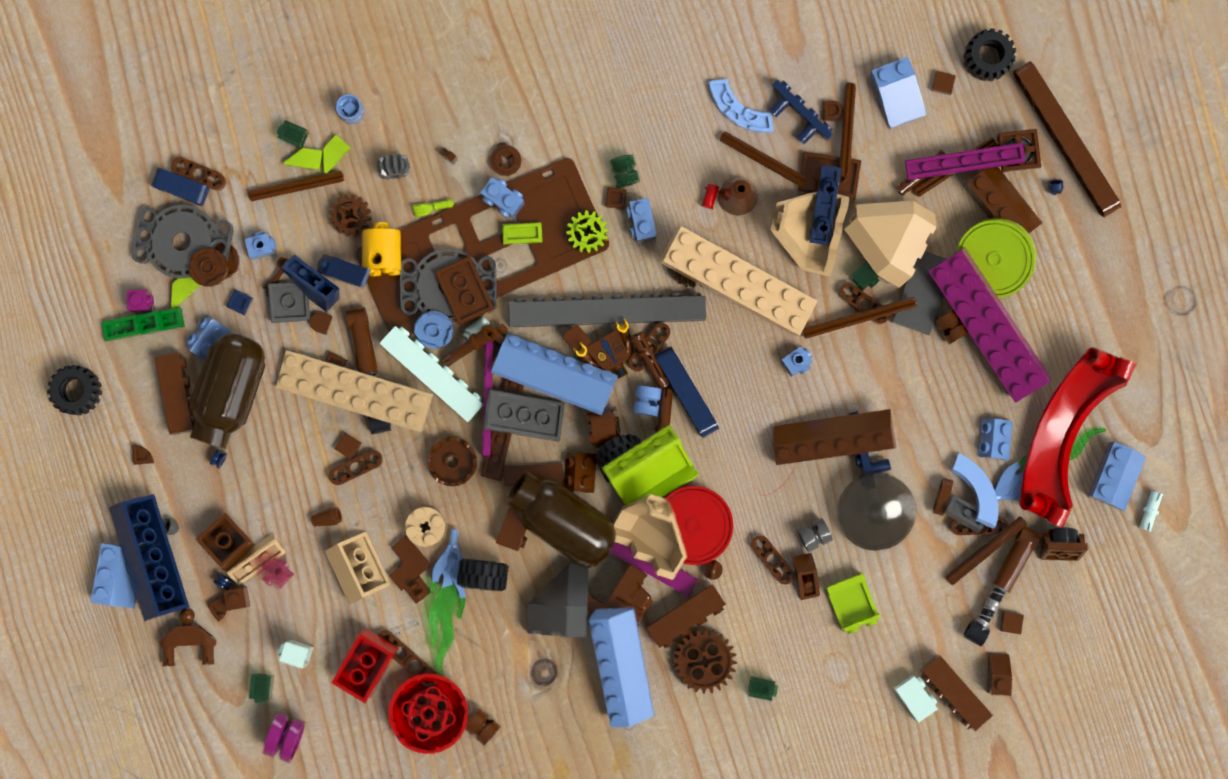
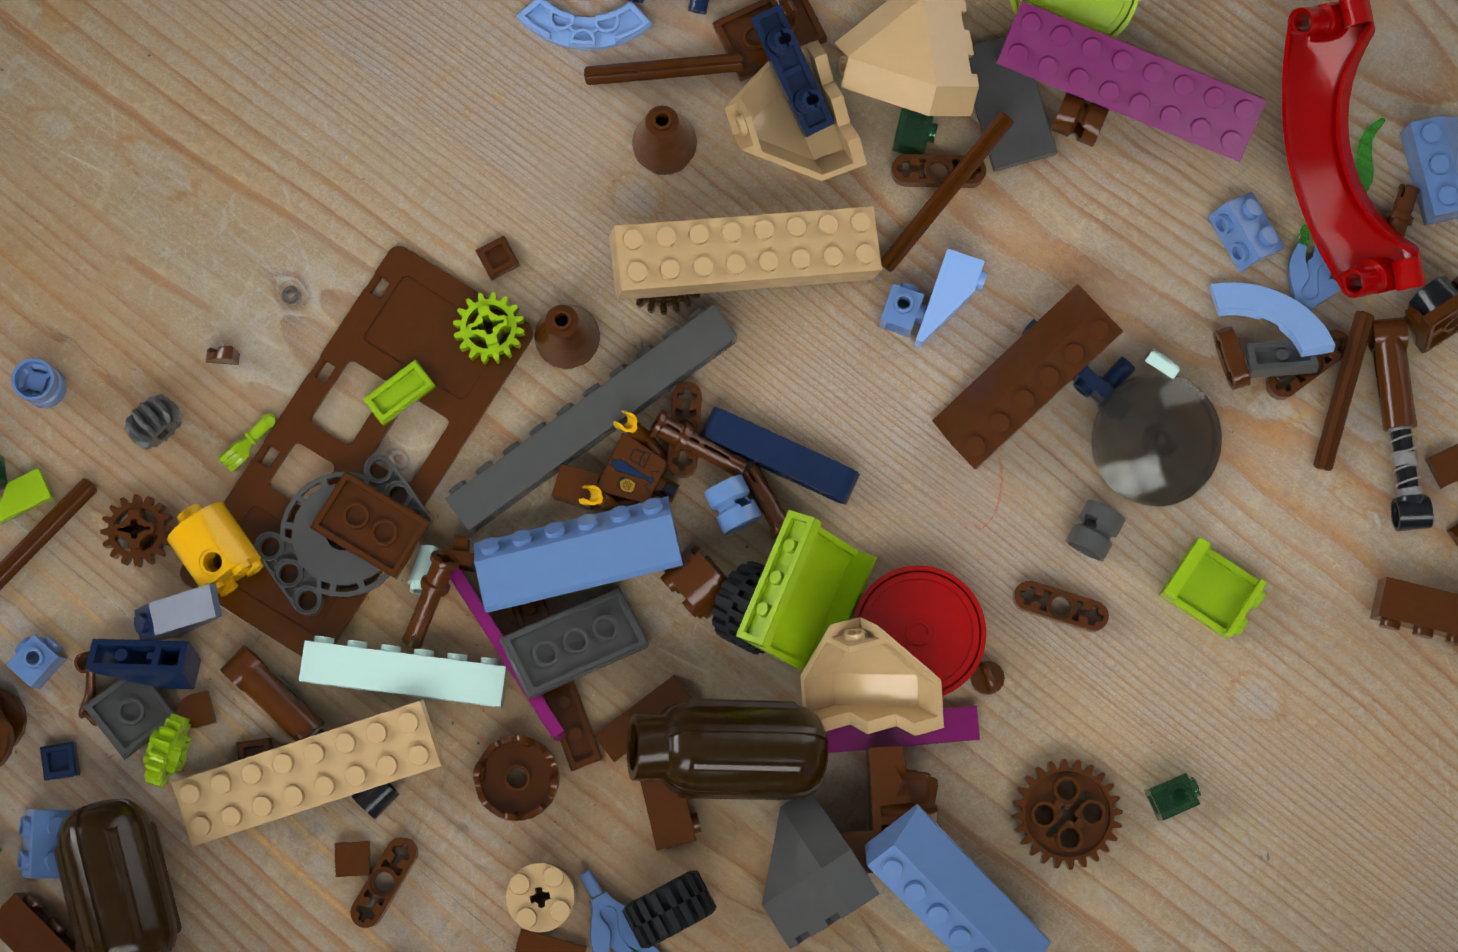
camera: 30 degrees left, 5 degrees down
(294, 333) = (167, 750): none -> lime gear
(334, 152) = (57, 460): lime tile -> none
(433, 329) = (364, 609): medium blue tile -> none
(499, 195) = (337, 360): medium blue brick -> none
(507, 151) = (302, 295): reddish brown gear -> none
(580, 472) = (707, 667): reddish brown bracket -> none
(623, 164) = (474, 205): clear green wheel -> none
(623, 268) = (567, 336): none -> reddish brown cone
(643, 224) = (555, 261): medium blue brick -> none
(685, 616) = (996, 768): reddish brown brick -> none
(710, 196) = (626, 167): red pin -> none
(806, 576) = (1123, 596): reddish brown slope -> none
(829, 368) = (953, 289): none -> light blue slope
(905, 476) = (1162, 363): none -> light aqua tile
(915, 698) = (1394, 661): light aqua brick -> none
(1081, 481) = (1400, 215): none -> reddish brown pin

